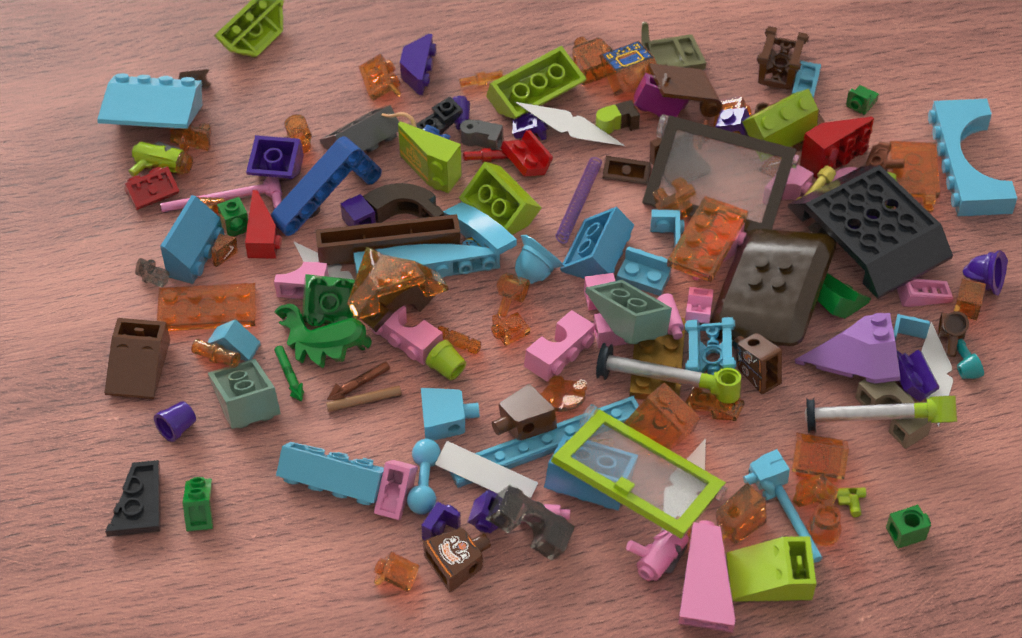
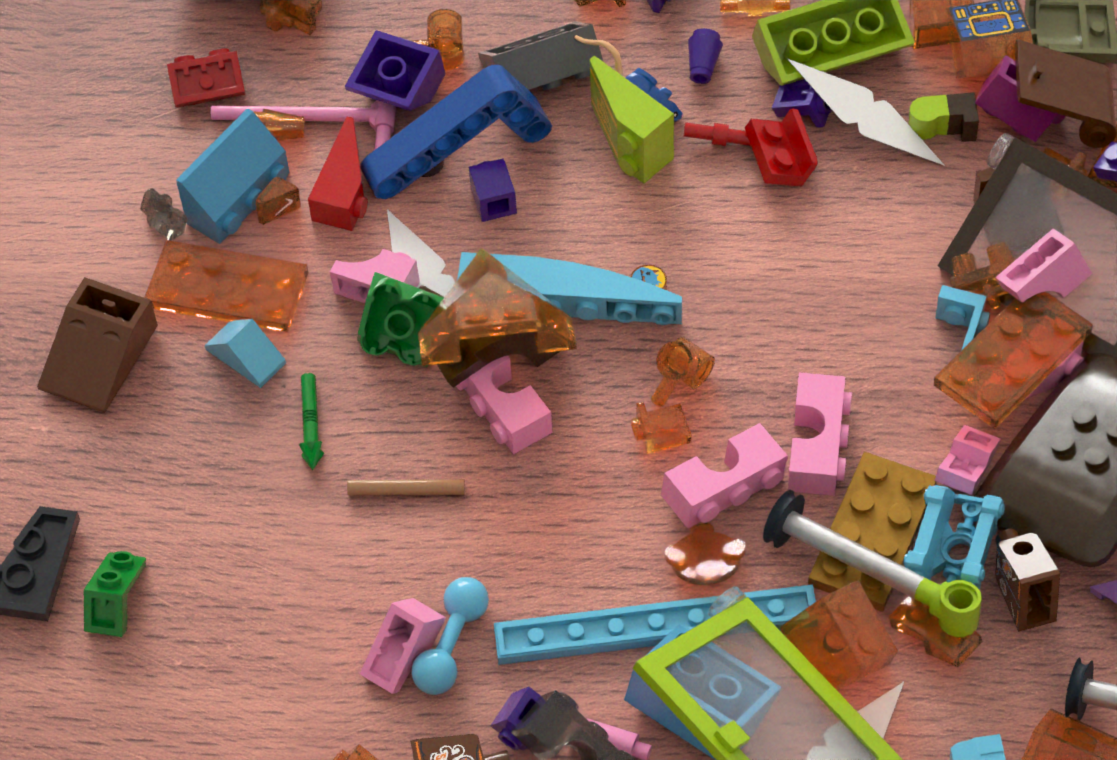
camera: 20 degrees right, 5 degrees up
(160, 155) = (234, 31): lime piece -> none
(174, 420) = (120, 455): dark purple piece -> none
(215, 353) = (213, 363): clear orange pin -> none
(233, 217) = (306, 151): green brick -> none
(245, 394) = (233, 437): sand green slope -> none
(324, 341) = (375, 383): green animal -> none
(330, 472) = (314, 593): medium azure wedge -> none
(339, 392) = (372, 469): copper piece -> none
(340, 243) = (445, 232): reddish brown brick -> none
(402, 199) = (570, 179): dark brown arch -> none
(438, 518) = (444, 712): dark purple bracket -> none
(443, 115) = (674, 57): black slope -> none
(445, 412) = (515, 542): medium azure torso -> none
(446, 360) = (545, 457): lime piece -> none
(460, 340) = (578, 428): clear orange axle -> none
(481, 134) = (724, 99): dark grey leg -> none
(482, 228) = (668, 254): medium azure slope -> none
(482, 470) = (545, 654): white sticker -> none
(500, 198) = (714, 216): lime slope -> none
(525, 414) = (632, 576): reddish brown torso -> none
(535, 261) = (730, 331): medium azure piece -> none
(586, 191) = (834, 239): medium lavender piece -> none
(598, 244) = (842, 323): dark azure slope -> none
(626, 170) = (930, 207): reddish brown slope -> none
(630, 311) = (846, 448): sand green slope -> none
(644, 271) = (899, 384): medium azure bracket -> none
(675, 325) = (911, 469): bright pink cylinder -> none
(712, 183) = (1047, 266): none -> bright pink arch

